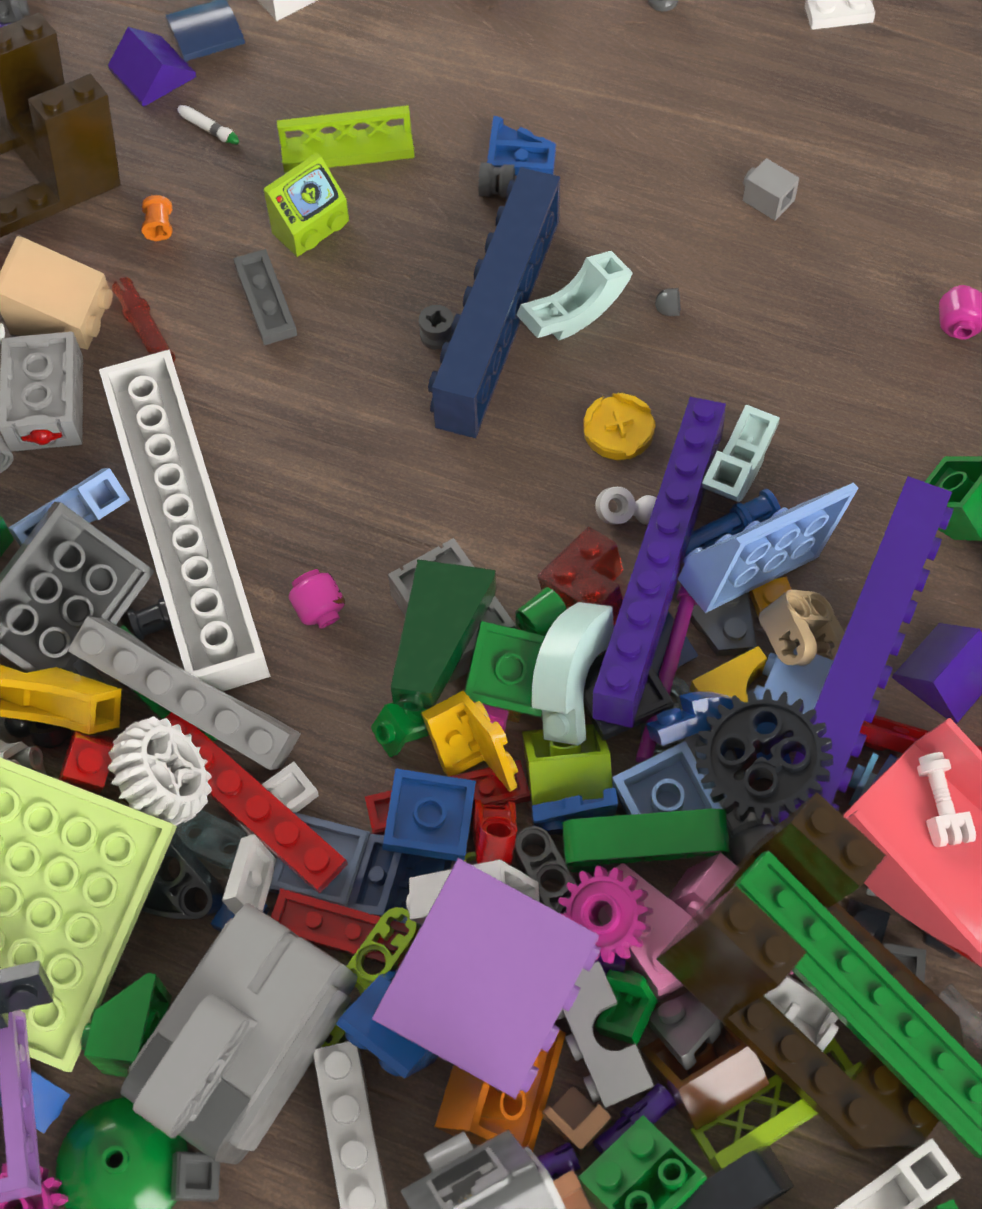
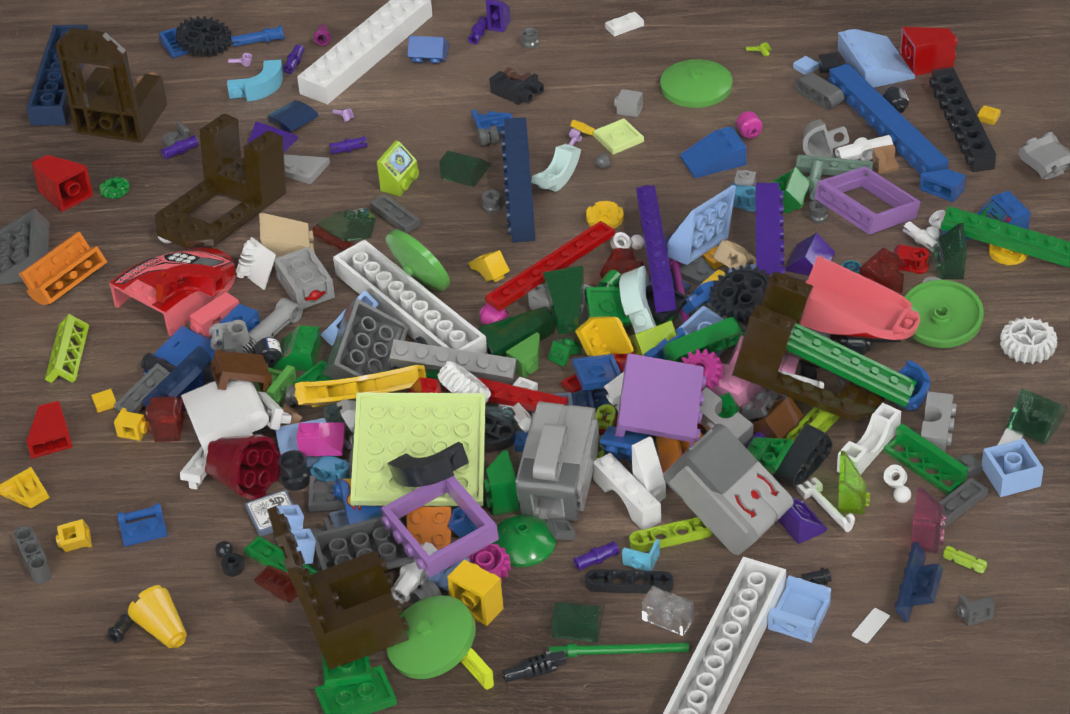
camera: 20 degrees left, 20 degrees down
(156, 223) = (318, 199): orange bush -> none
(162, 138) = (304, 167): none -> light grey wing
(171, 302) = (350, 224): none -> clear green slope
(220, 441) = (417, 260): none -> bright green dish
(223, 133) = (332, 156): white piece -> none
(257, 119) = (348, 145): none -> dark purple pin
(290, 53) = (347, 114): none -> lavender hand
(328, 655) = (511, 331): none -> dark green slope
(330, 713) = (526, 355): none -> bright green slope
(346, 144) = (411, 141): lime fence -> none
(363, 477) = (490, 266): none -> yellow arch
(398, 1133) = (647, 468): none -> white slope
(424, 234) = (462, 168): none -> clear green slope
(447, 536) = (556, 260): none -> red plate
(594, 97) = (514, 86): none -> black hips
(648, 230) = (575, 135): none -> lavender hand
(666, 216) = (582, 127): none -> yellow tile
(722, 254) = (618, 136): none -> yellowish green tile
(741, 459) = (672, 204): light aqua arch -> none
(874, 356) = (715, 153): none -> blue slope
(877, 473) = (744, 196): none -> dark azure piece
(900, 445) = (745, 178): none -> light grey bracket
(910, 180) = (696, 83): none -> bright green dish
(949, 826) = (839, 301): white hinge -> none

